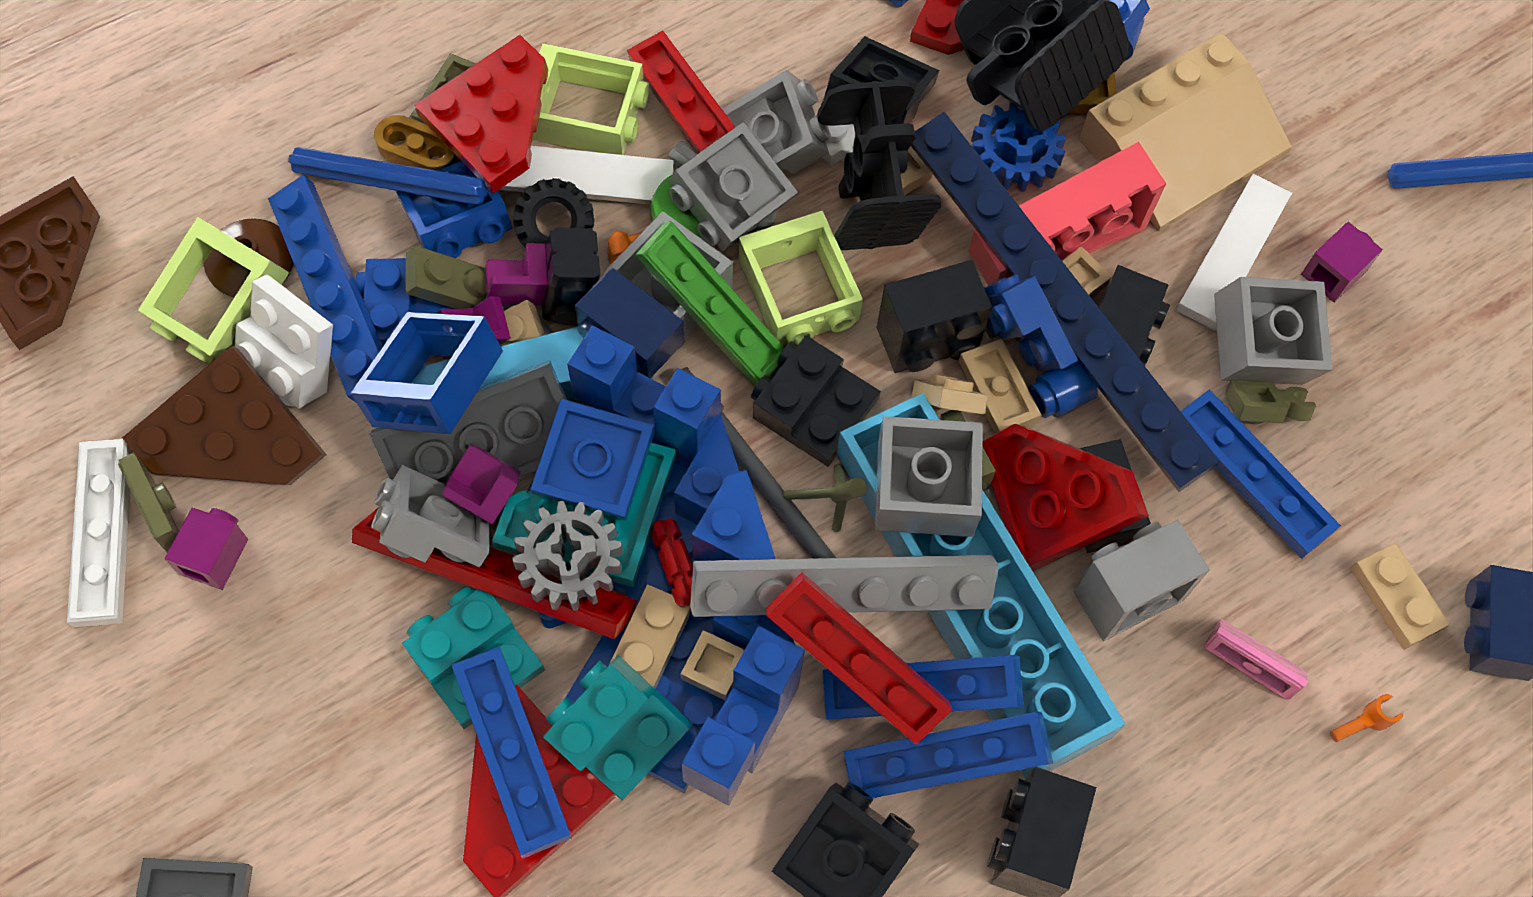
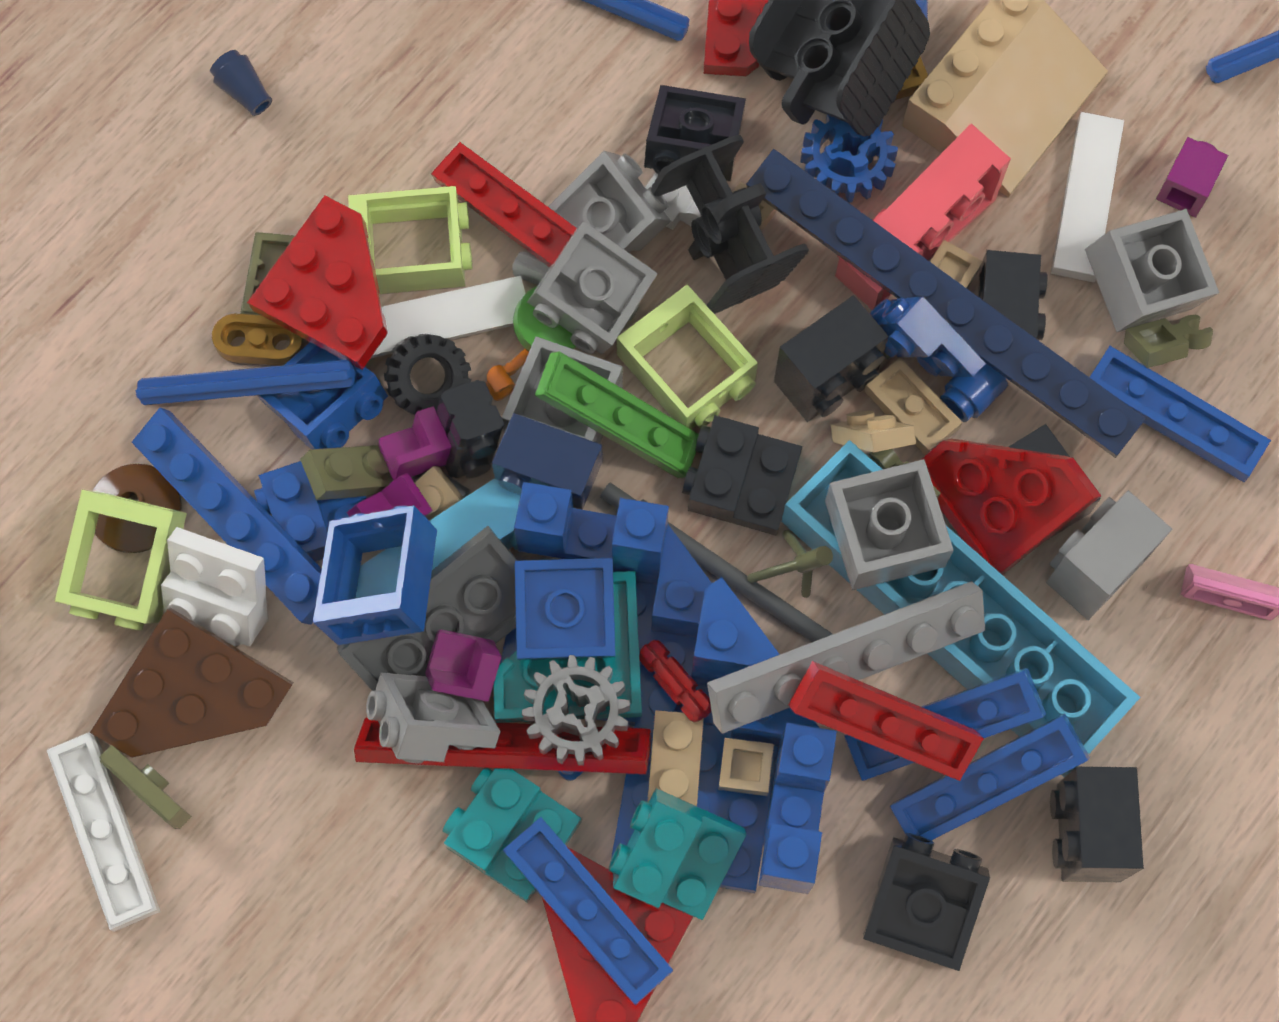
camera: 15 degrees left, 5 degrees up
(207, 547) = (217, 811): magenta brick -> none

